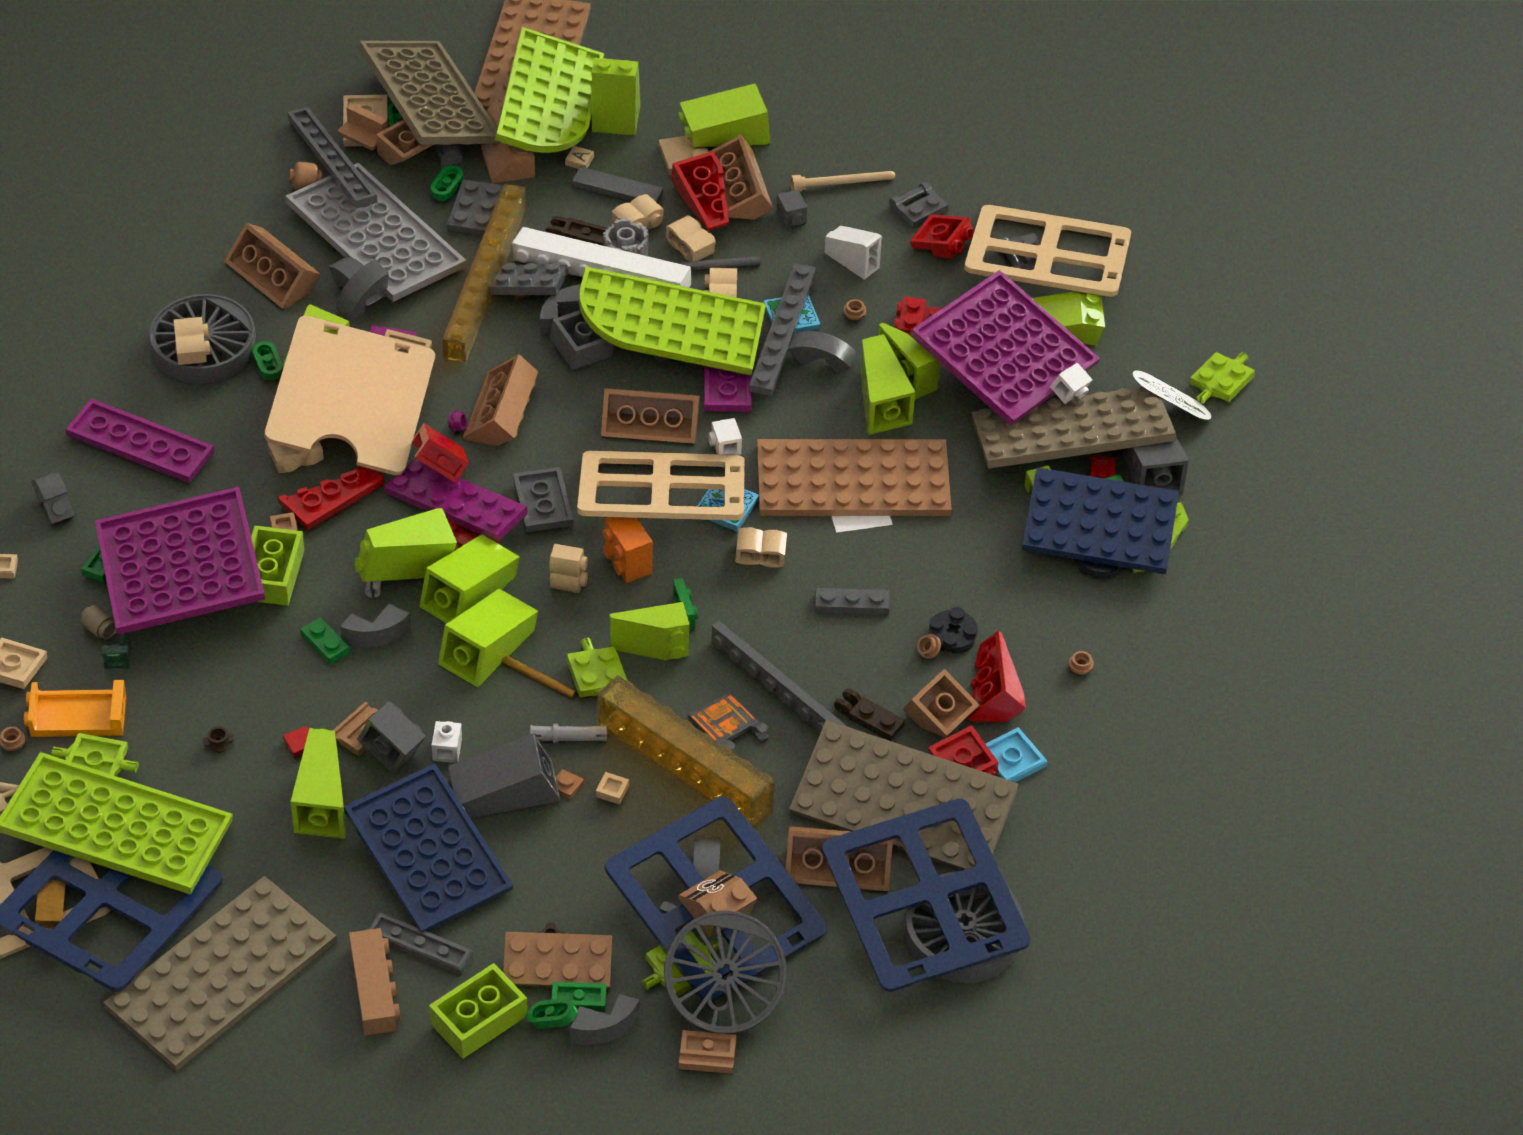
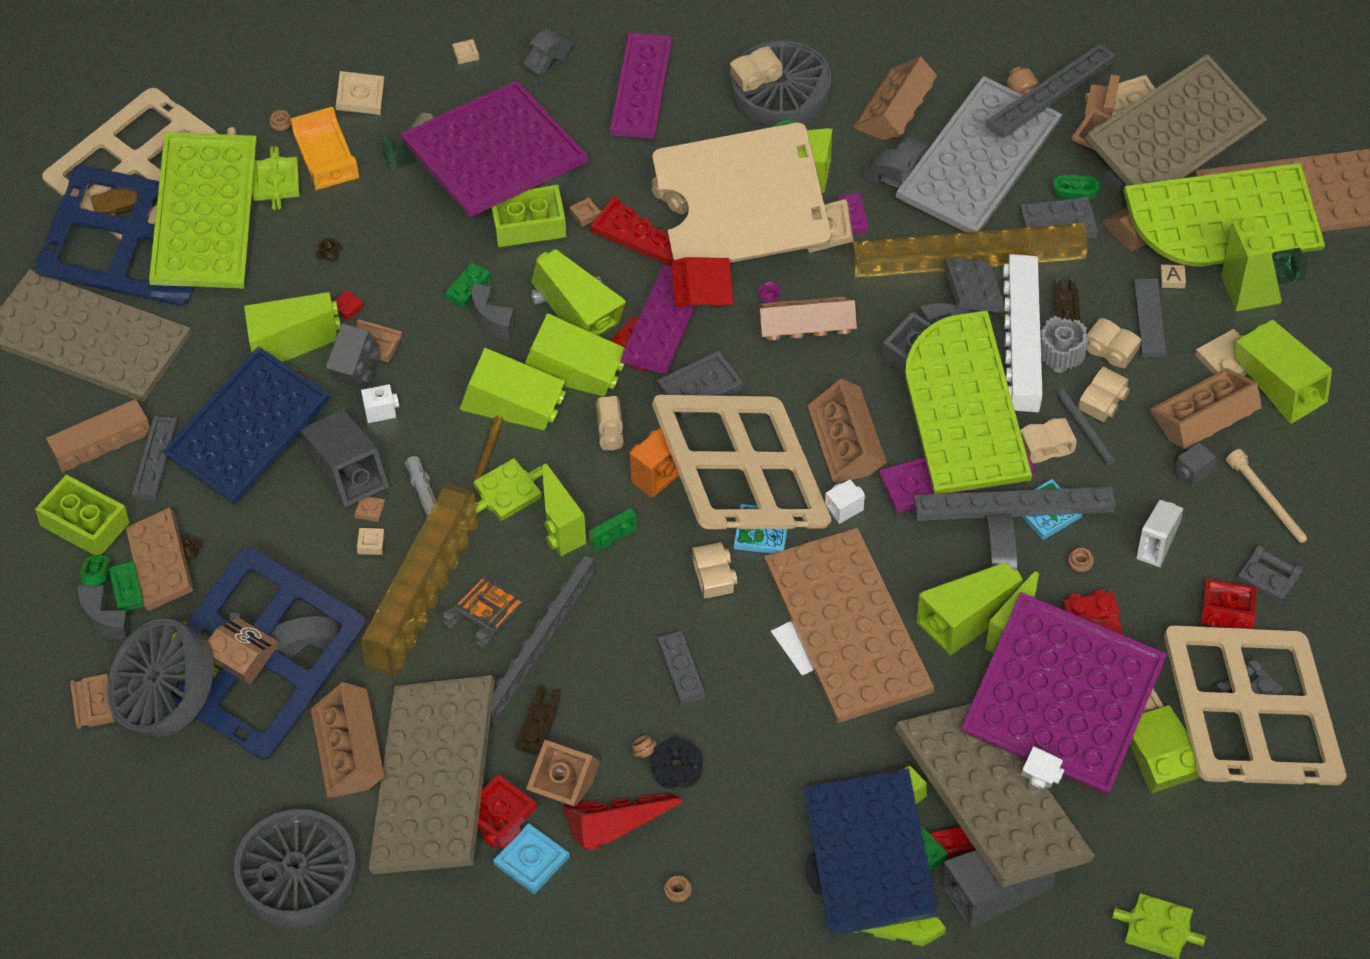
camera: 75 degrees right, 5 degrees up
(702, 188) = (1172, 377): red wedge -> none
(930, 890) = (309, 819): dark blue window -> none
(1171, 395) = (1090, 876): white sticker -> none

